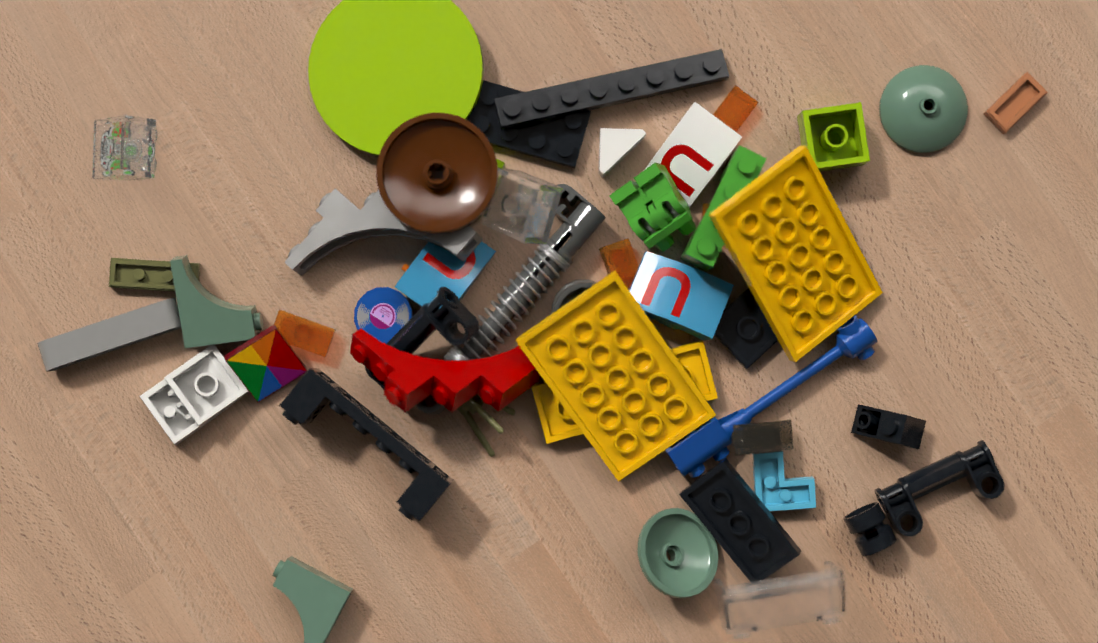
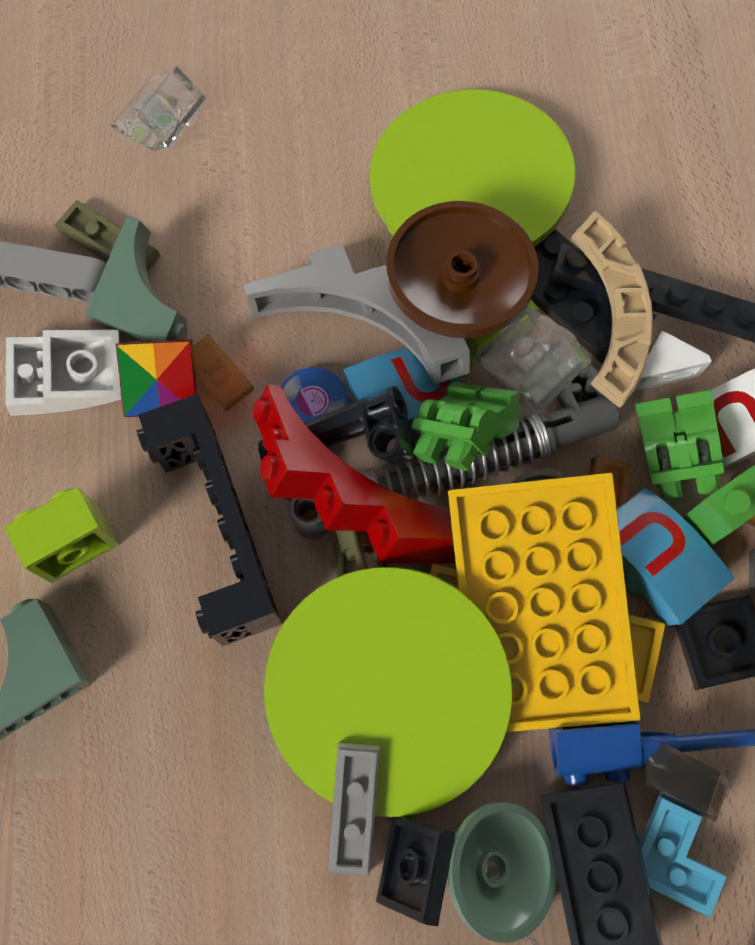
camera: 30 degrees right, 15 degrees down
(275, 509) = (61, 535): none -> lime brick
(500, 281) = (464, 423): none -> bright green hips
(548, 486) = (394, 667): none -> lime tile
(567, 568) = (353, 809): none -> light grey tile
(569, 127) = (629, 305): none -> tan tile
(624, 582) = (416, 869): none -> black tile

